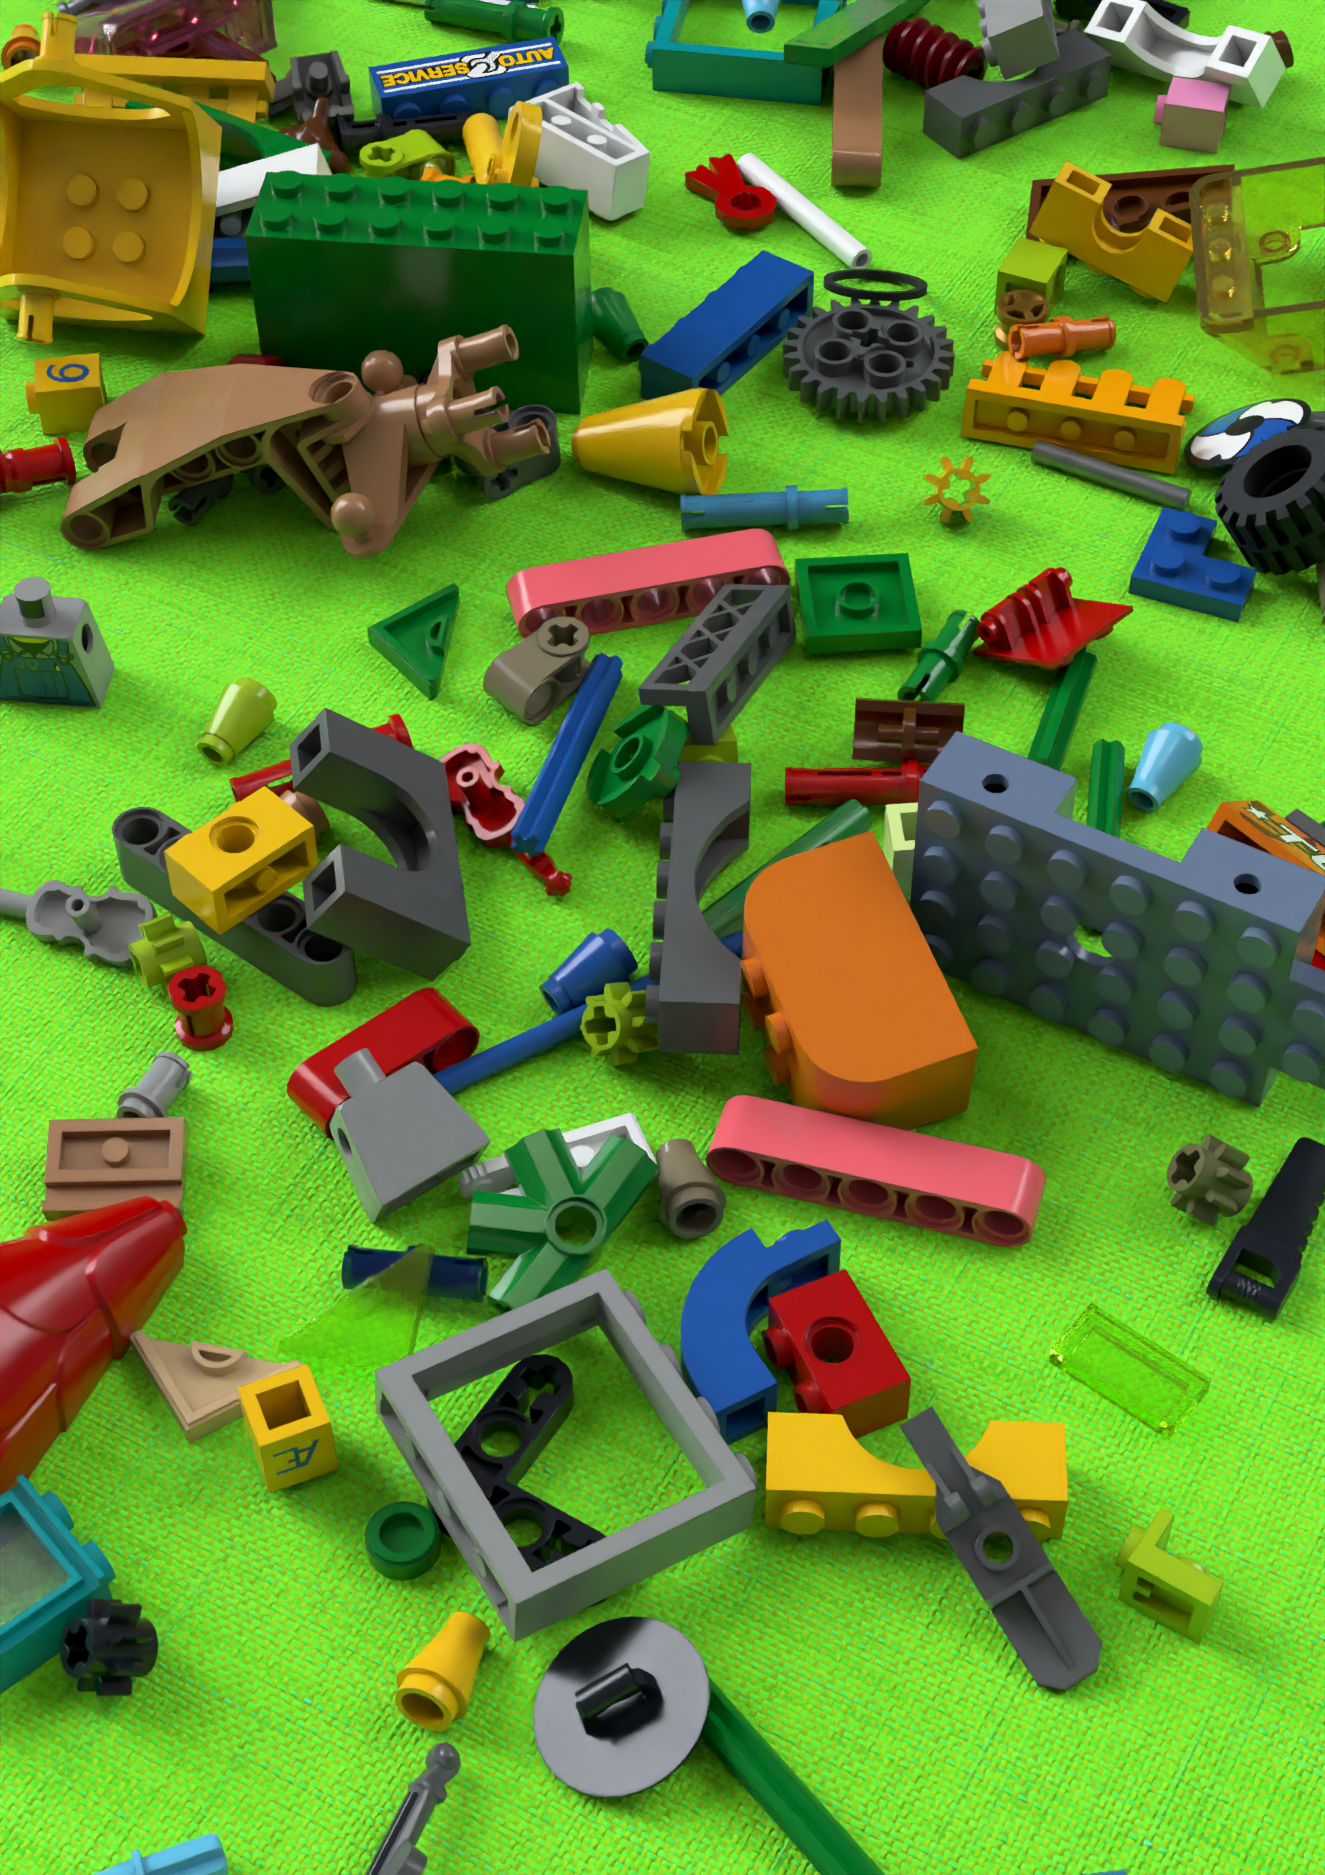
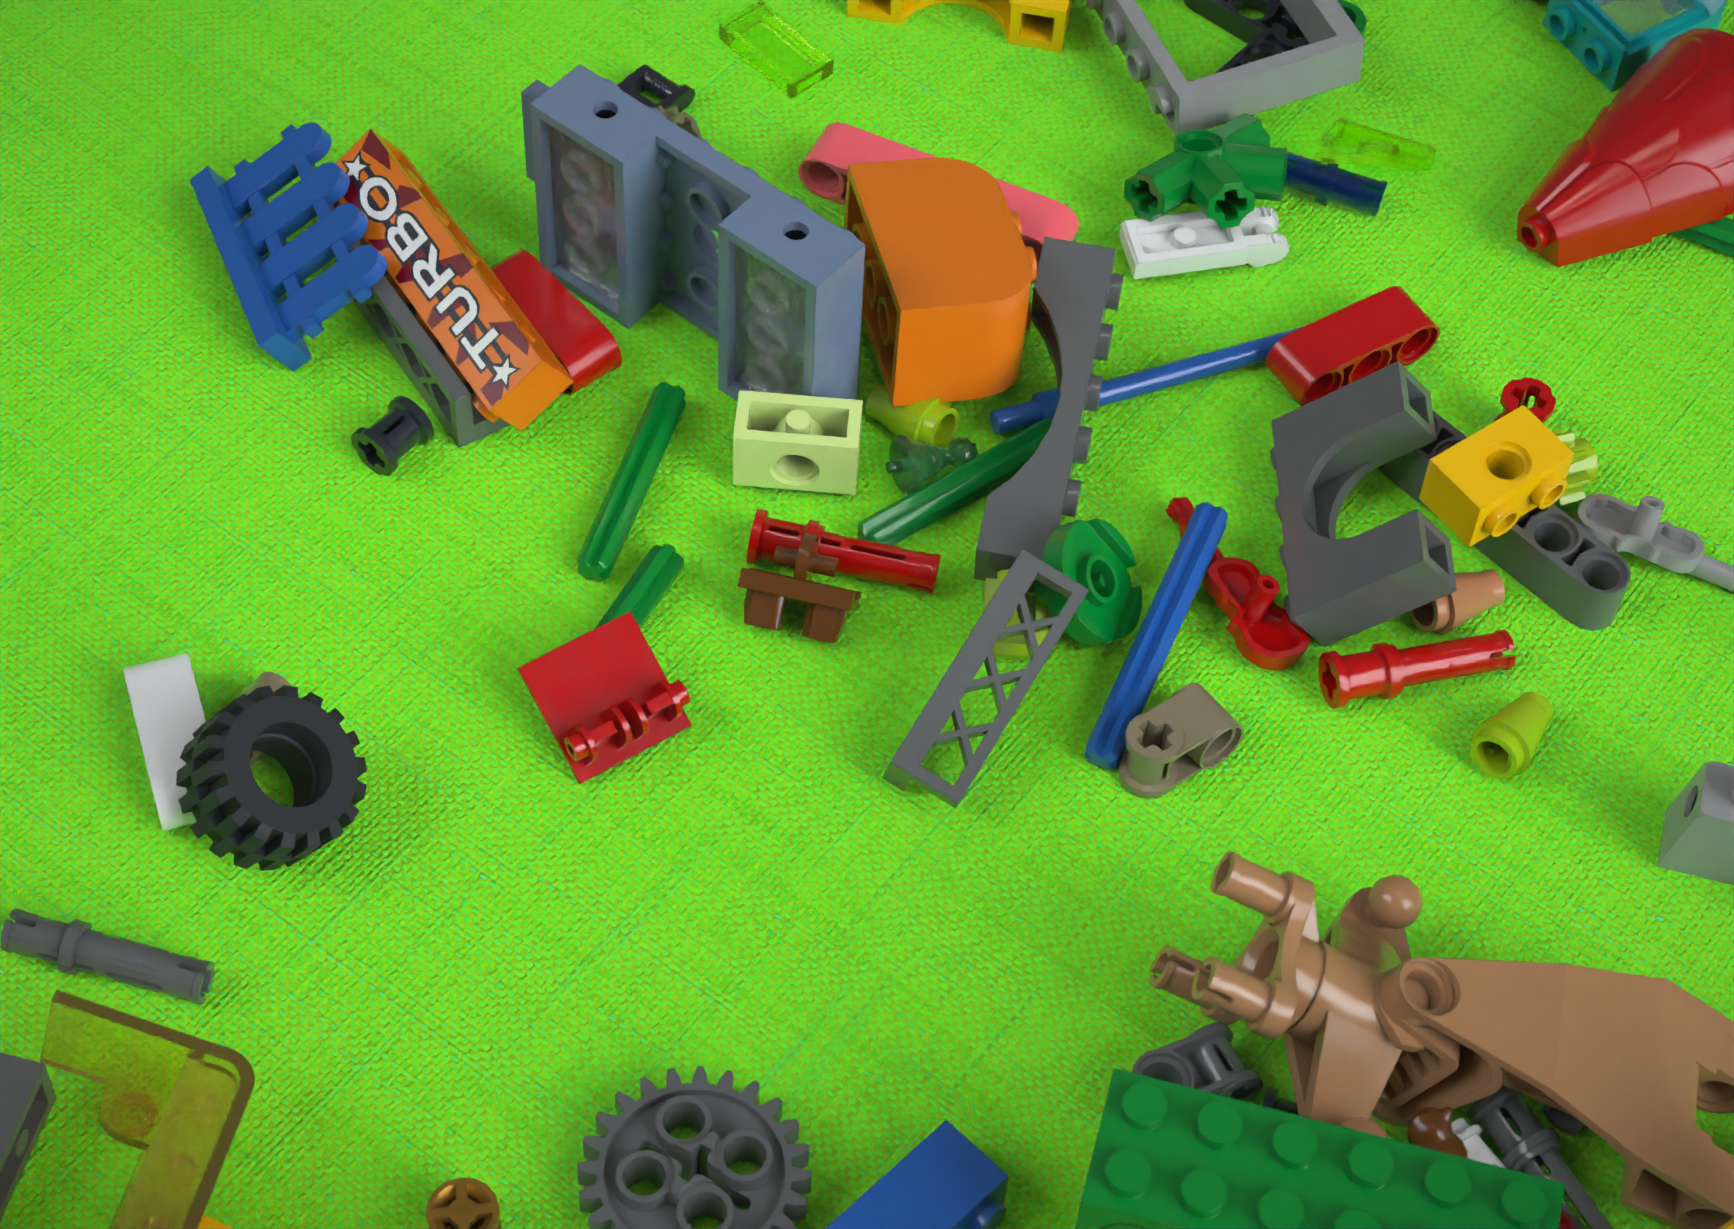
camera: 175 degrees left, 5 degrees up
(113, 1162) = (1583, 297): medium nougat plate -> none
(156, 1088) = (1562, 347): light grey pin -> none
(201, 1380) = (1487, 142): tan tile -> none
(288, 1428) = (1426, 64): yellow brick -> none
(400, 1133) = (1335, 258): light grey torso -> none
(419, 638) = (1314, 829): green tile -> none
(587, 969) = (1157, 404): blue cone -> none
(617, 1024) = (1139, 336): lime gear -> none
(644, 583) = (1043, 843): coral beam -> none
(659, 442) = (1010, 1036): yellow cone -> none
(688, 1194) = (1097, 203): dark tan cone -> none
(726, 1307) = (1076, 120): blue arch -> none
(765, 509) = (803, 932): dark azure pin -> none
(835, 1322) = (1002, 70): red brick -> none
(857, 603) = (807, 787): green plate -> none
(941, 659) = (735, 694): green pin -> none
(970, 495) = (649, 916): yellow gear -> none
(1061, 337) = (420, 1174): orange pin -> none
(1095, 427) = (433, 1000): light orange fence -> none
(1111, 475) = (444, 950): flat silver bar -> none
(1165, 763) = (542, 533): medium azure cone -> none
(1180, 574) = (421, 796): blue plate -> none
(1236, 432) = (258, 948): shield -> none

